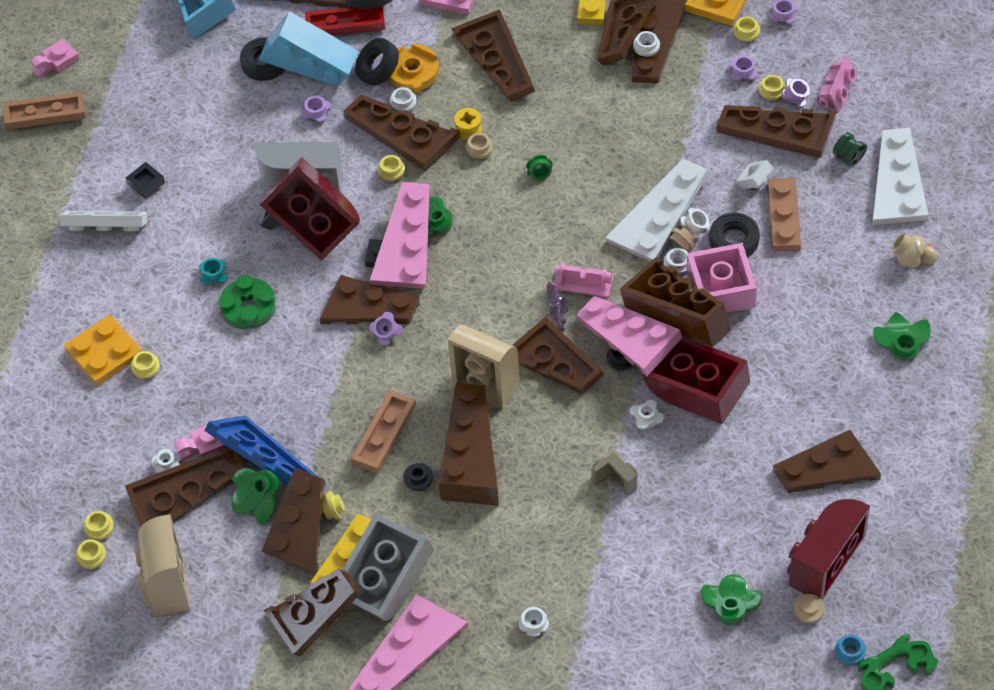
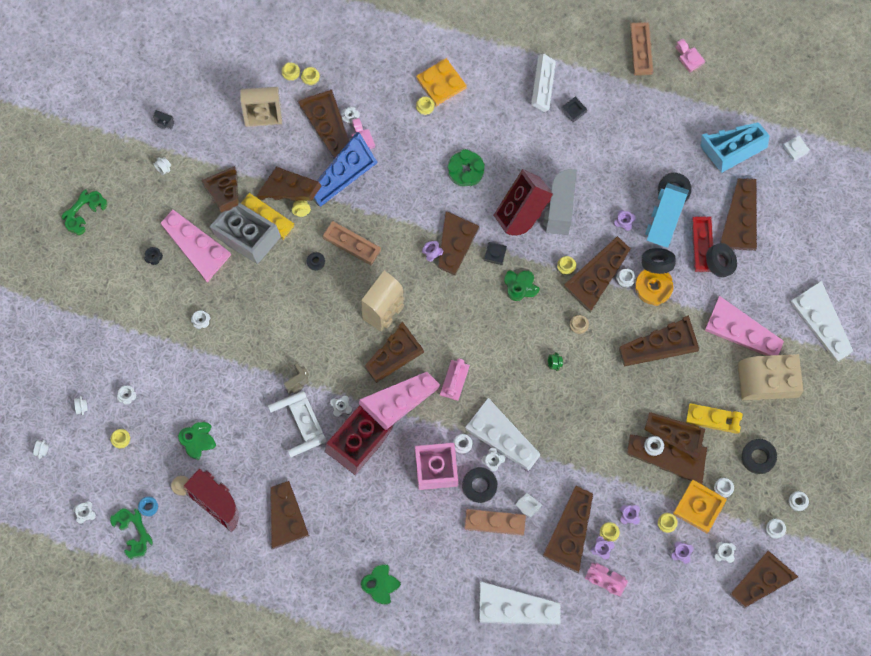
camera: 90 degrees right, 15 degrees up
(209, 266) = (497, 144): teal plate -> none
(251, 495) = (315, 163): green plate -> none
(404, 245) = (494, 265): bright pink wing -> none
(462, 120) = (594, 320): yellow wheel -> none
(468, 454) = (326, 291): reddish brown wedge -> none
(558, 306) = (436, 360): clear purple piece -> none
(675, 301) = (417, 428): reddish brown wedge -> none
(677, 456) = (305, 421): none -> white plate
(682, 239) = (478, 448): tan plate -> none
(849, 149) = (543, 576): dark green wheel -> none
(912, 251) = (449, 602): tan animal -> none

